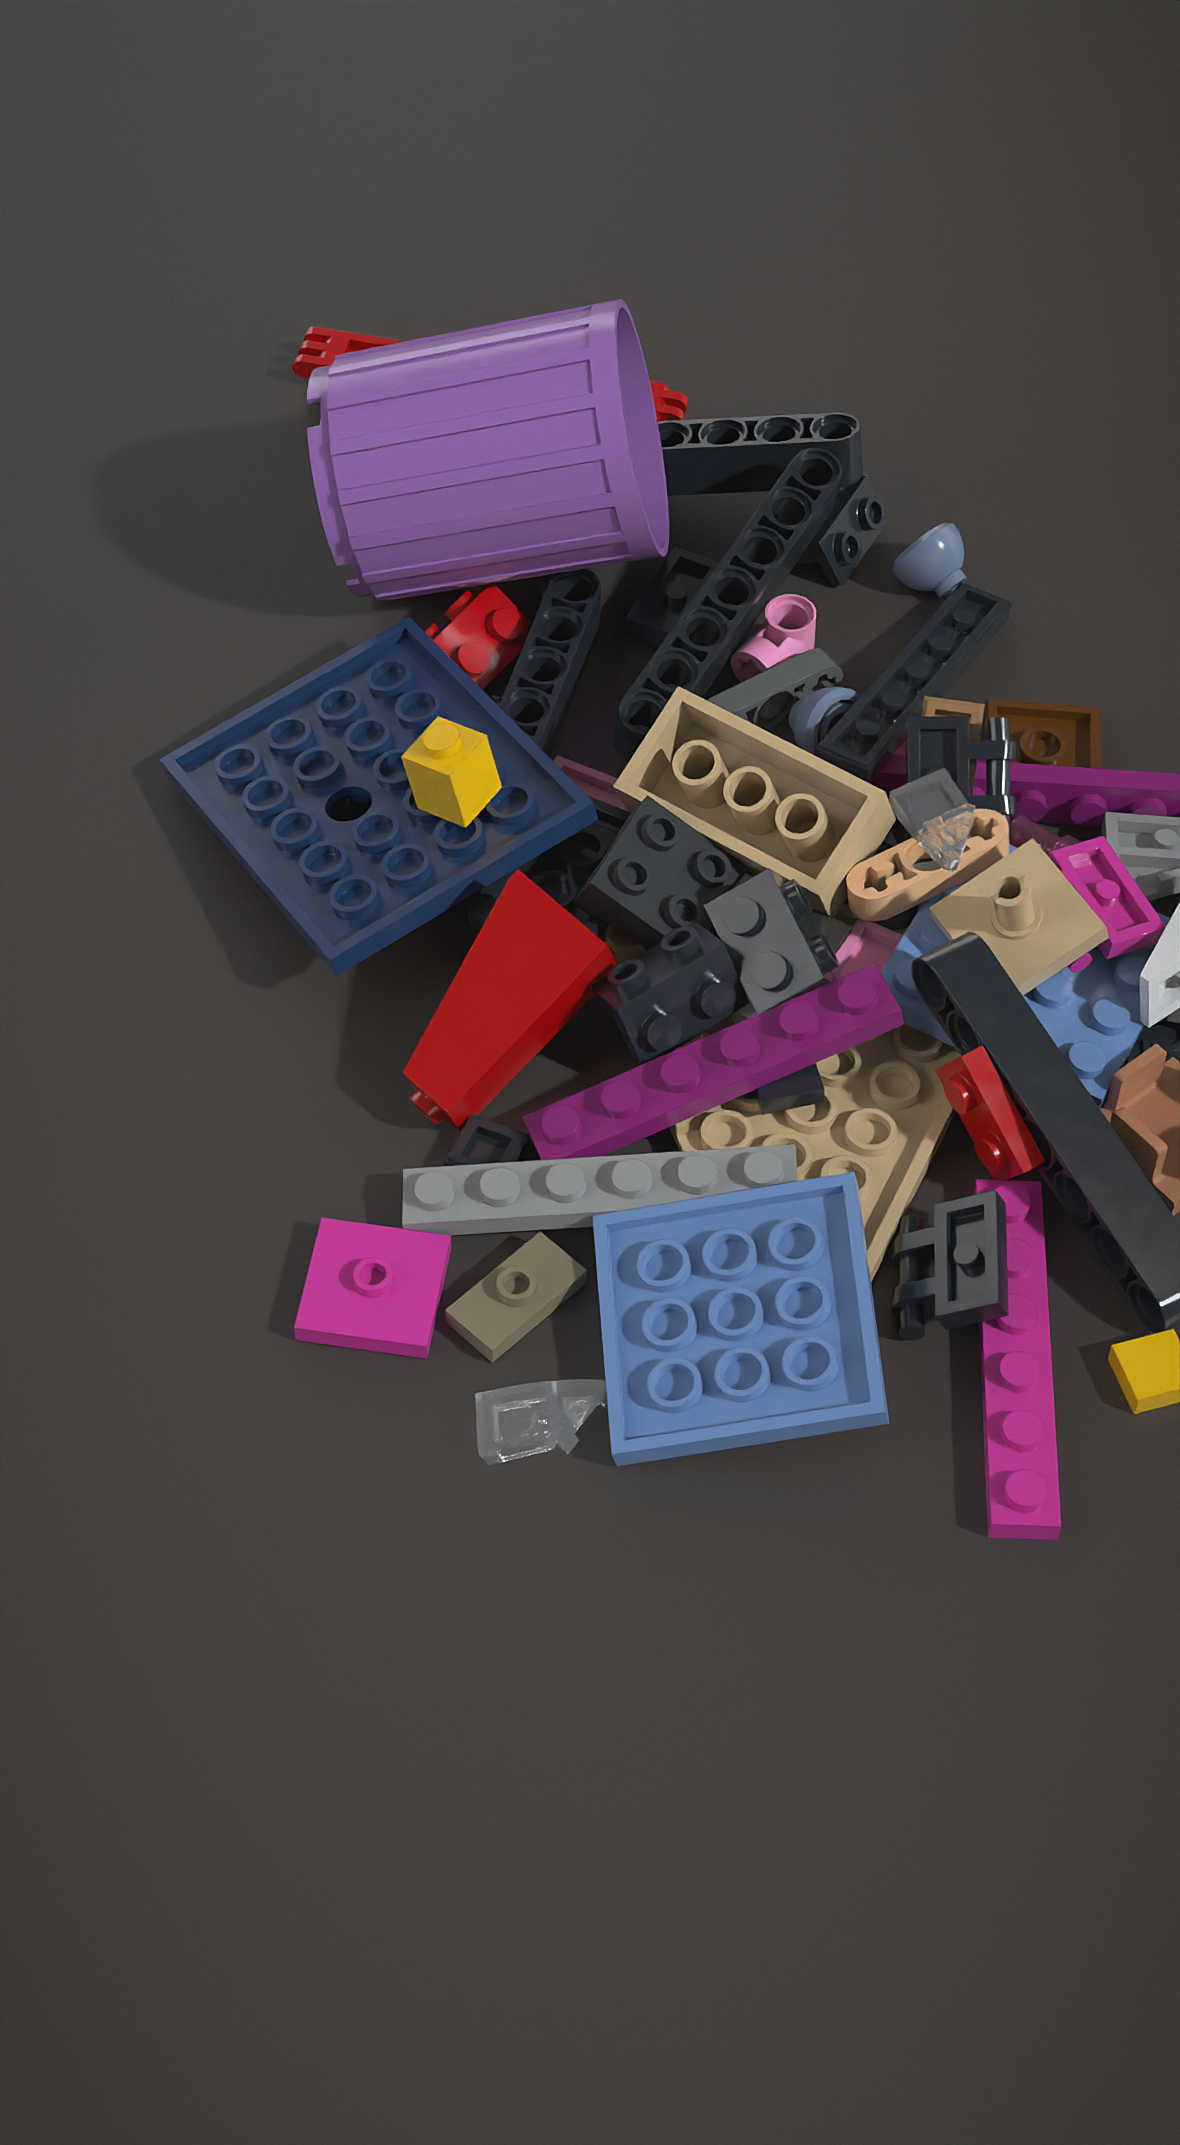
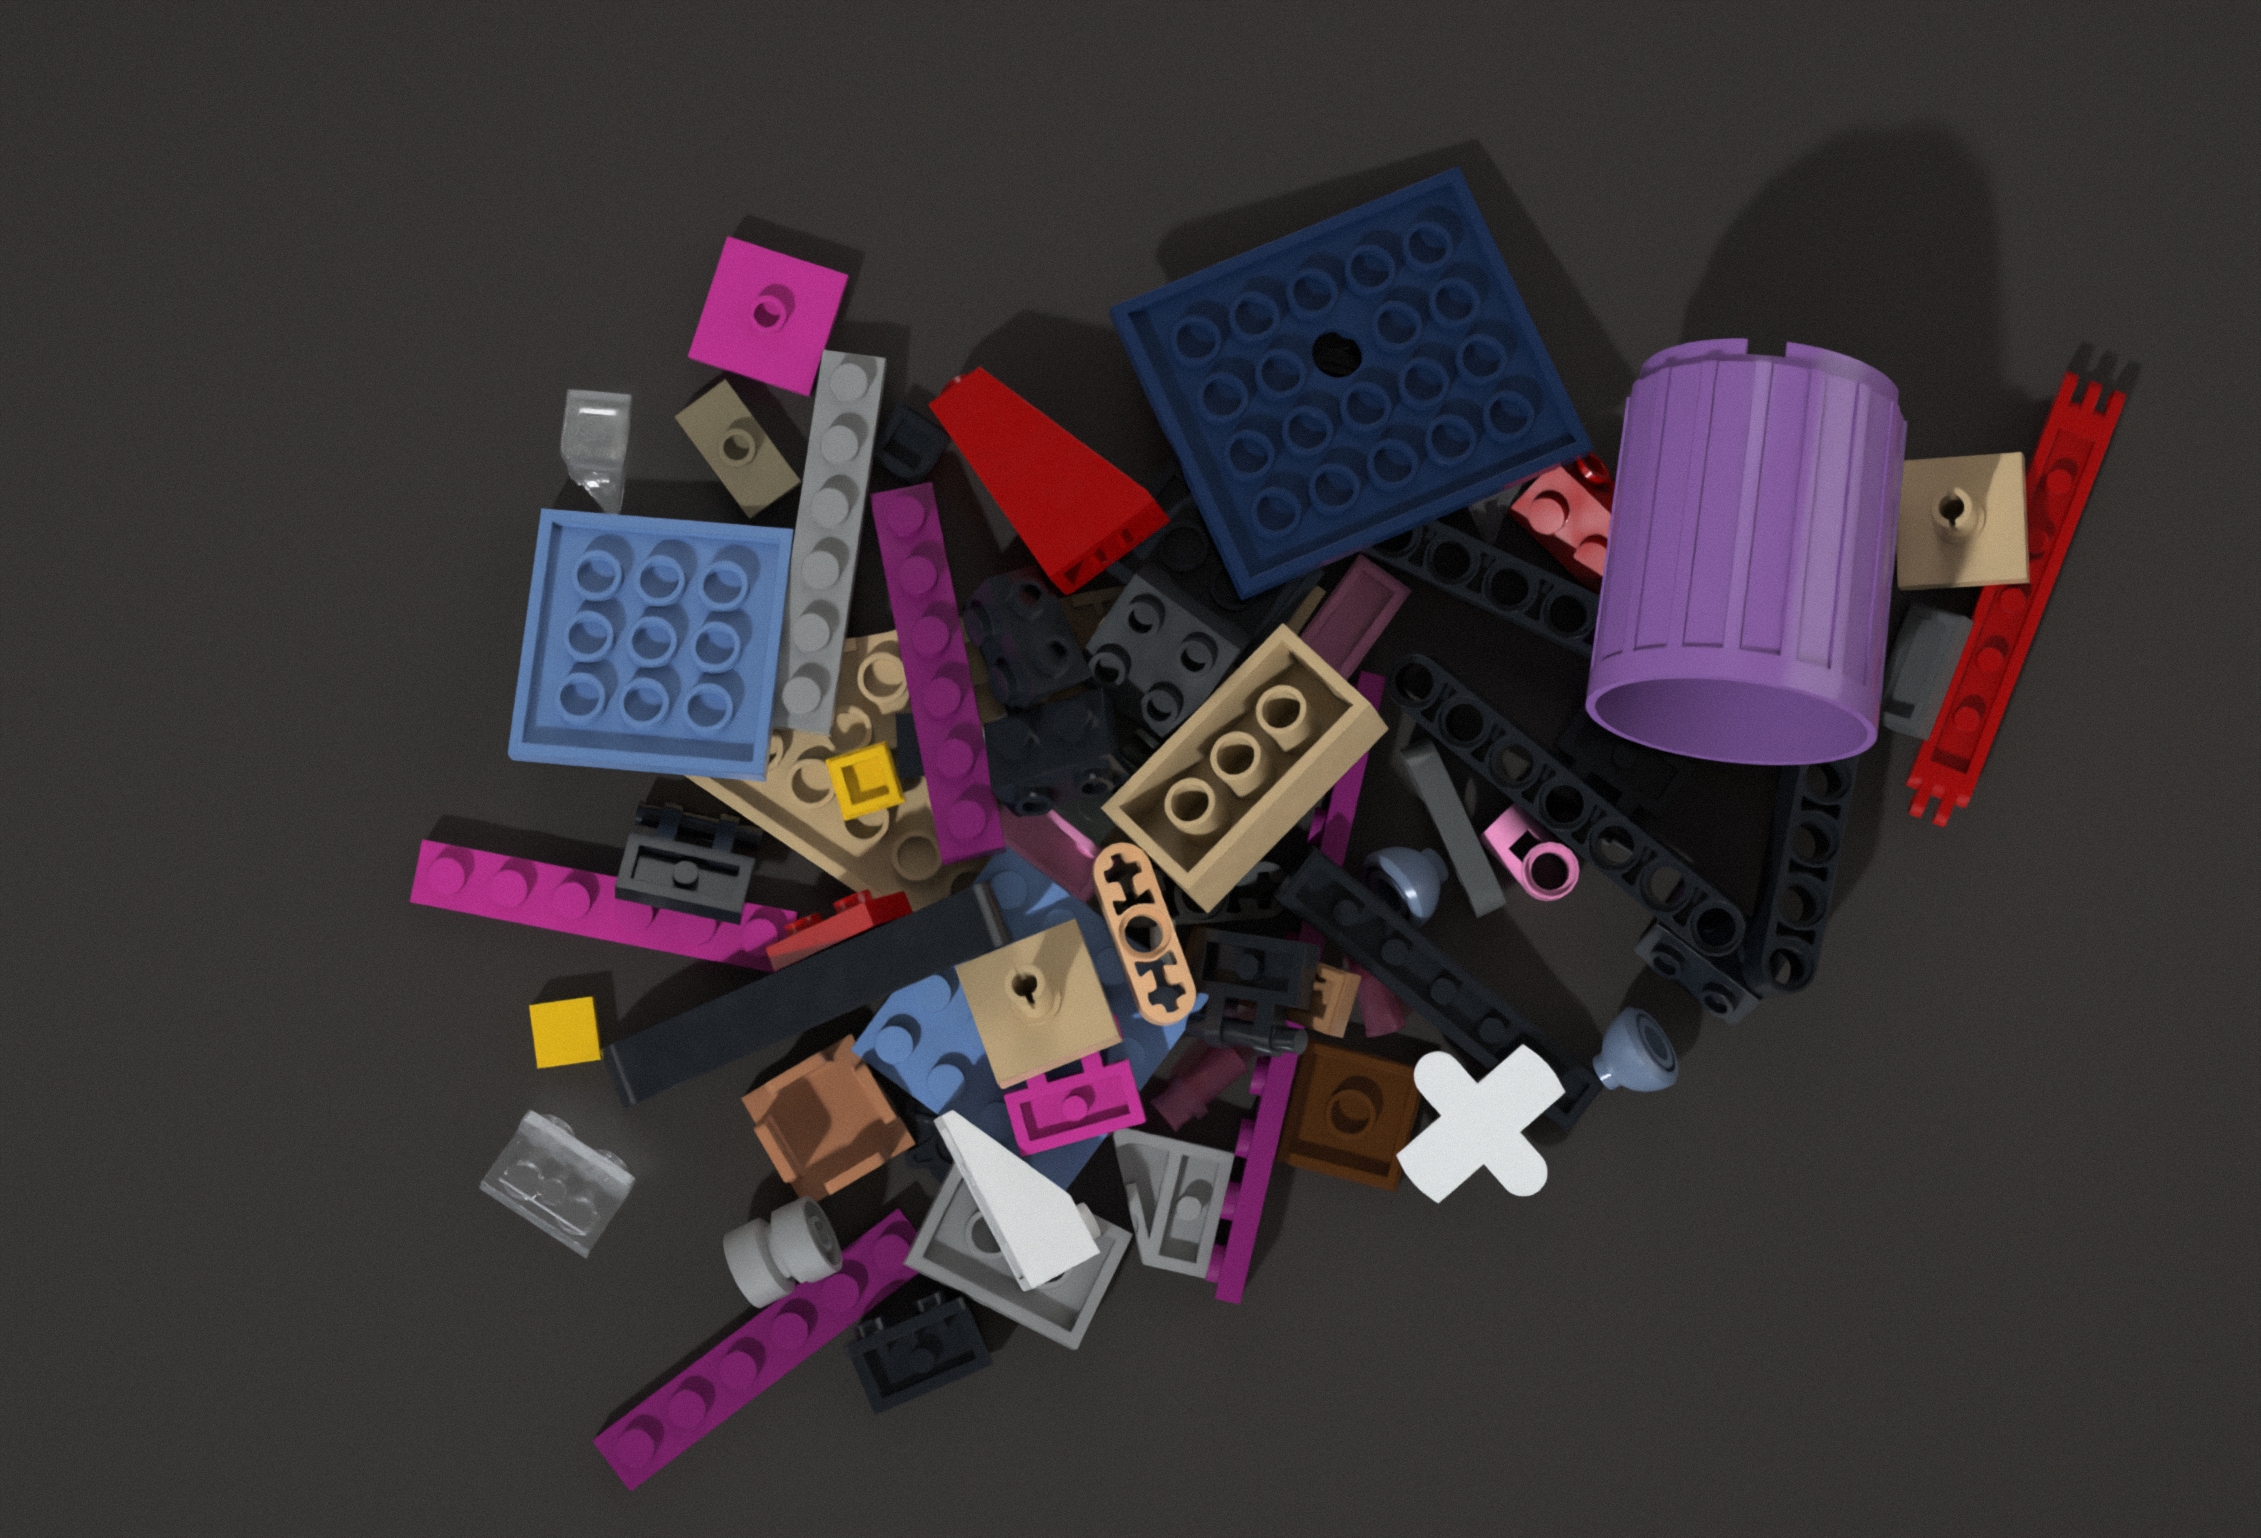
camera: 105 degrees right, 35 degrees up
(451, 771) = (1299, 451): yellow brick -> none
(833, 1124) = (865, 780): none -> yellow tile
(935, 816) = (1179, 950): clear slope -> none
(1024, 648) = (1480, 1123): none -> white piece

